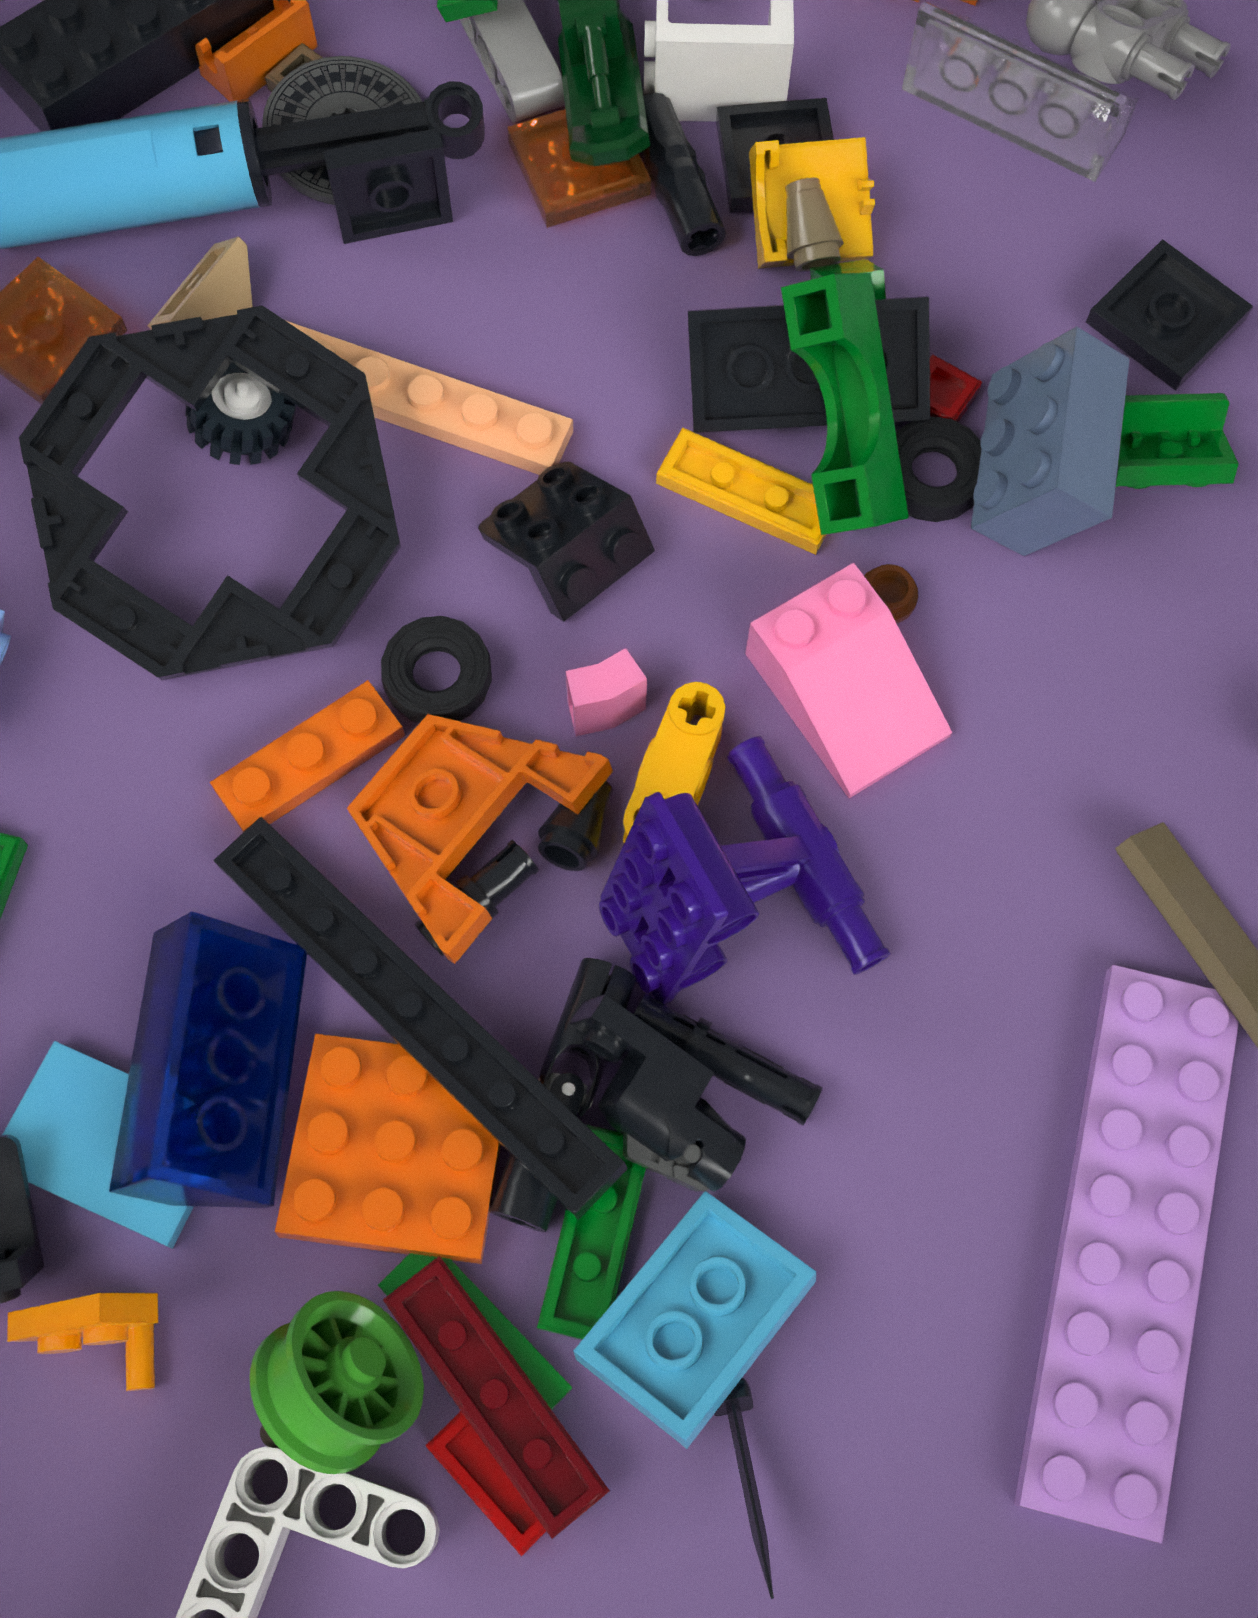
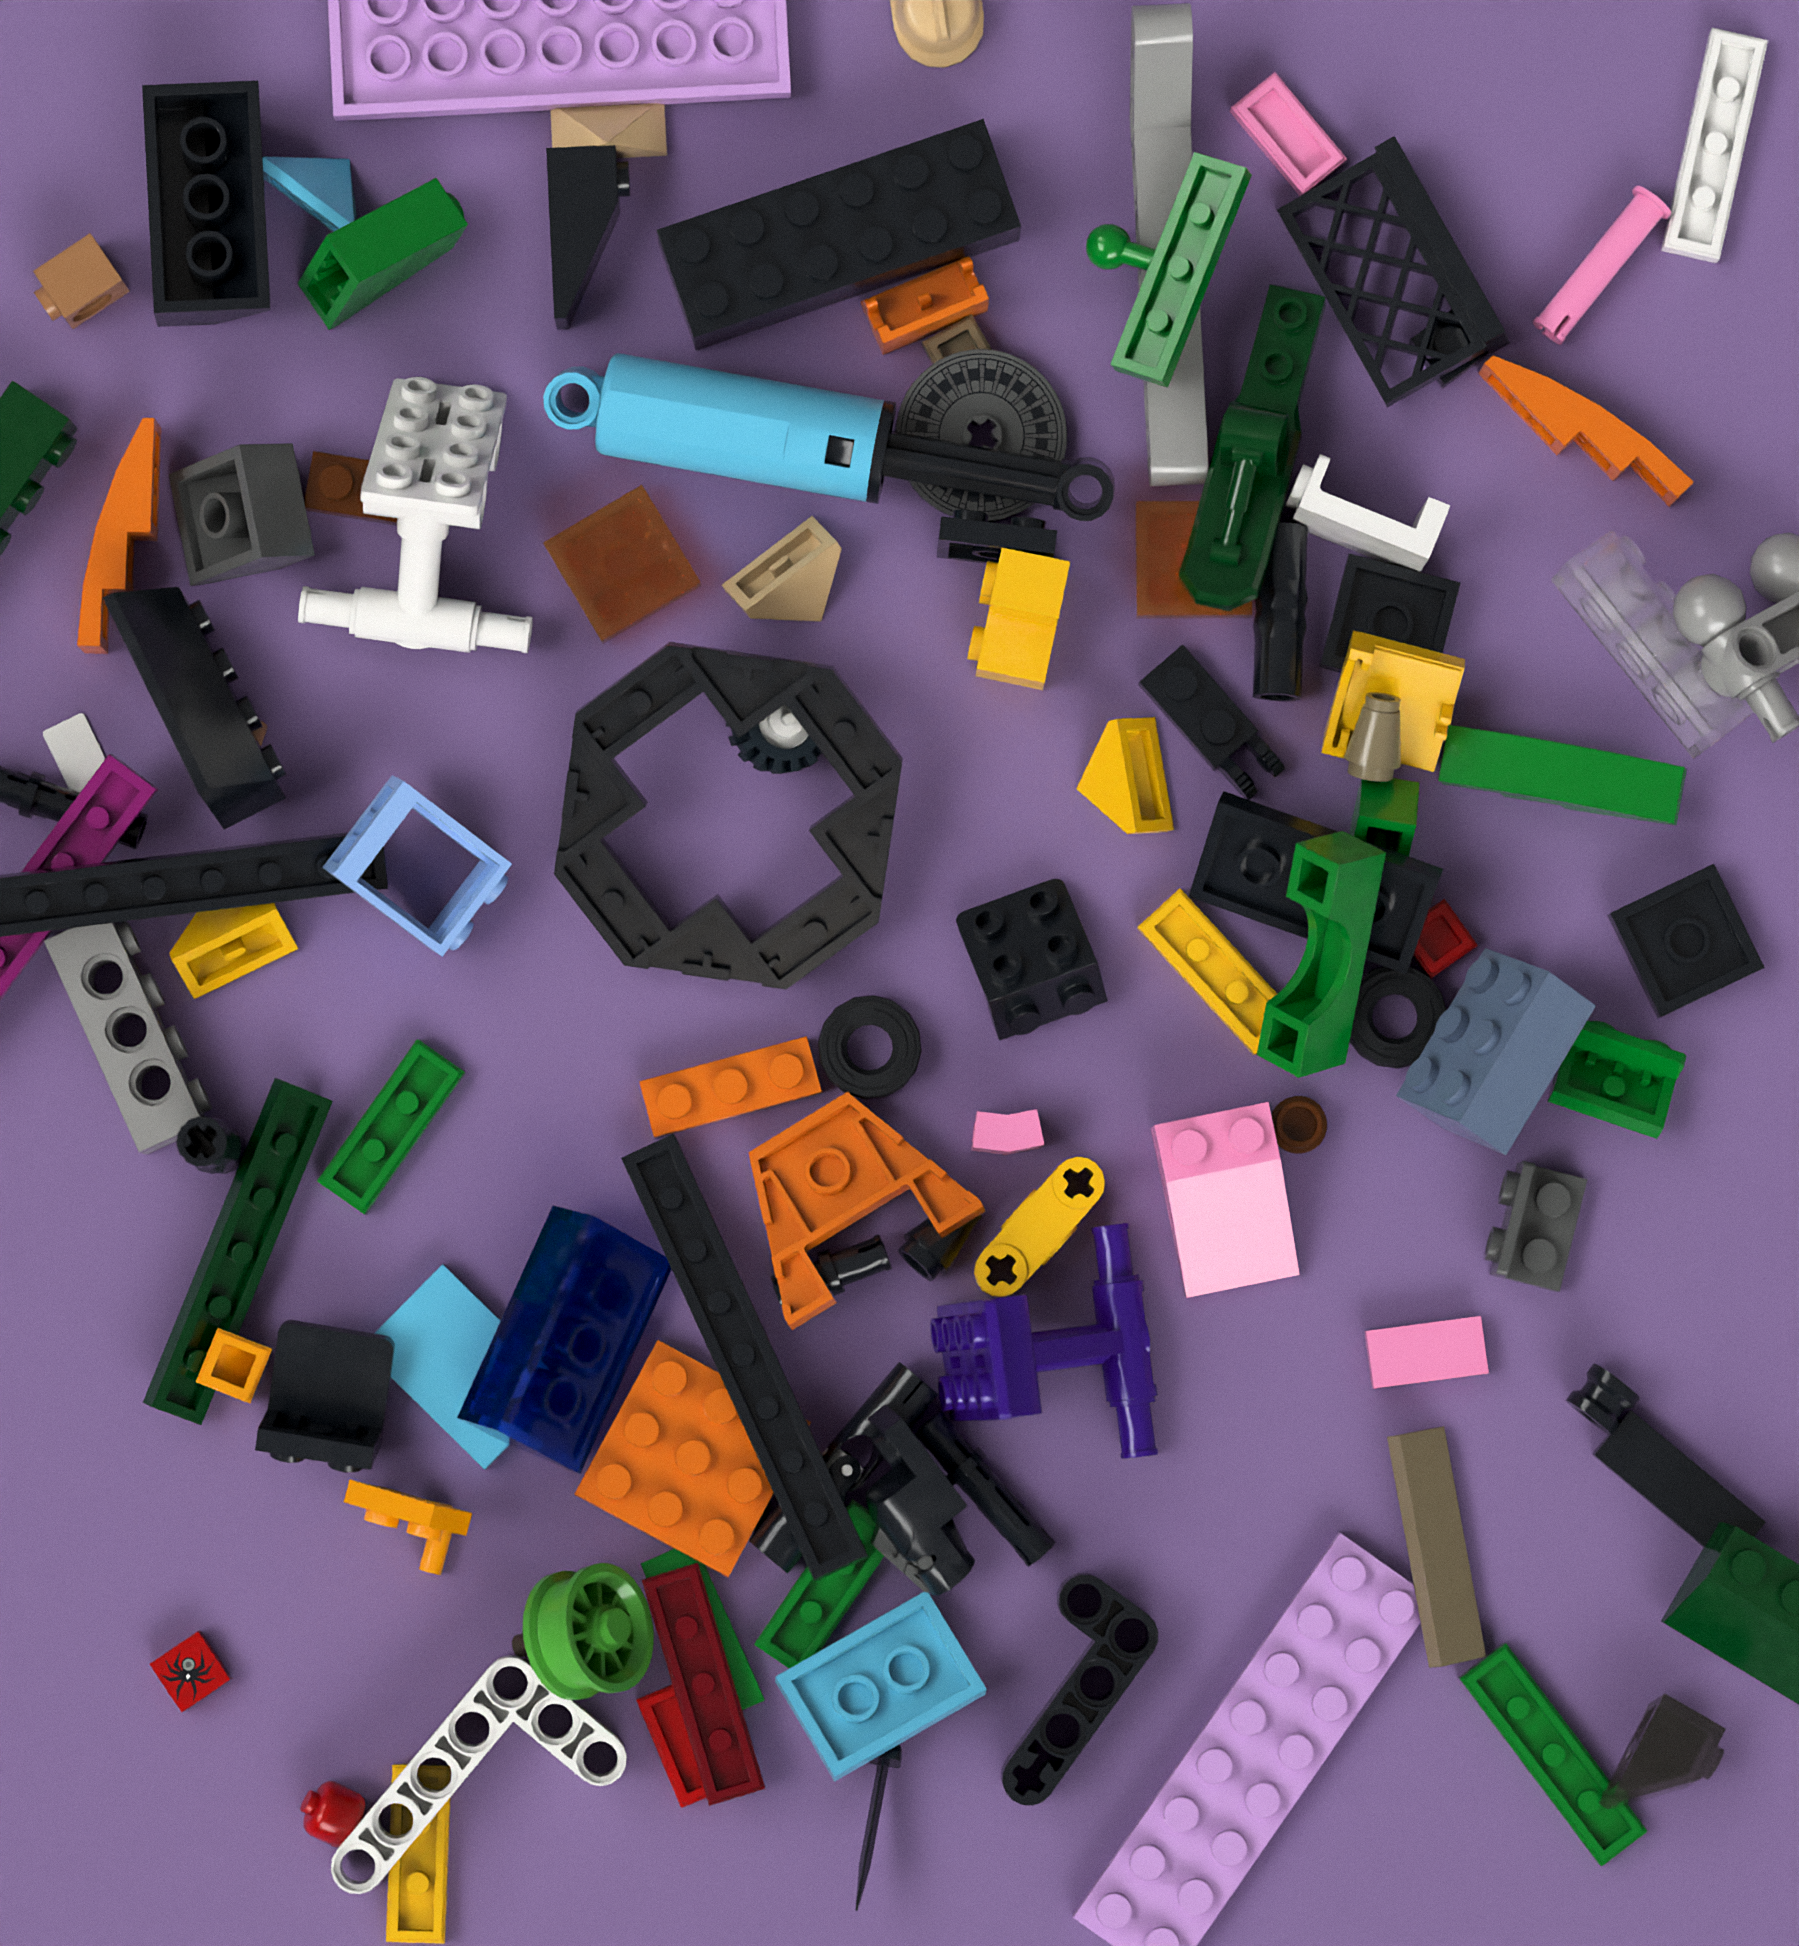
camera: 15 degrees right, 15 degrees up
(435, 237) = (1022, 617): none -> yellow brick
(456, 410) = (944, 756): light nougat plate -> none
(591, 351) = (1129, 777): none -> yellow slope
(646, 282) = (1207, 718): none -> black hinge
(908, 1247) = (1069, 1697): none -> black beam
(992, 212) = (1562, 775): none -> green slope
(1110, 759) = (1426, 1352): none -> bright pink tile
(1157, 605) = (1536, 1225): none -> dark grey bracket

